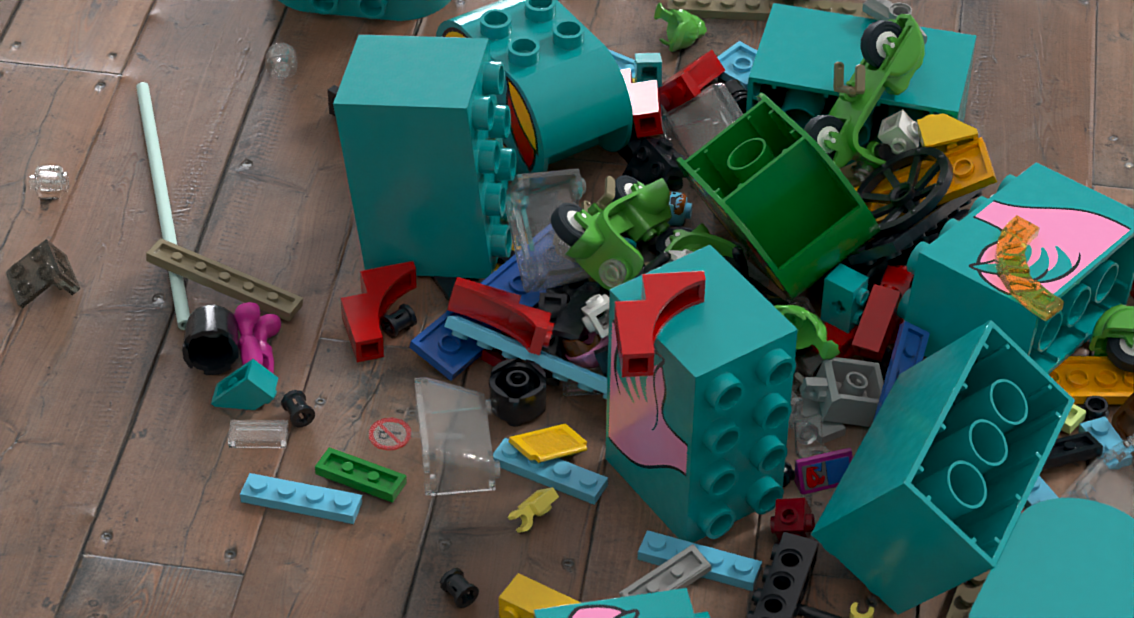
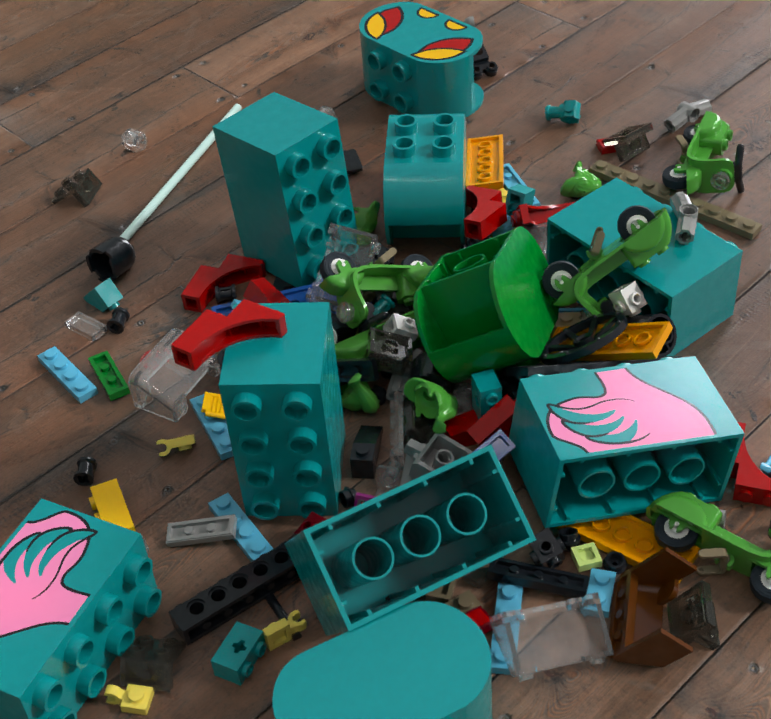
camera: 40 degrees right, 0 degrees up
(224, 279) = (158, 229): dark tan plate -> none
(254, 334) = (132, 279): dark pink piece -> none
(944, 132) = (644, 307): yellow slope -> none
(1014, 270) = (579, 417): clear yellow tile -> none

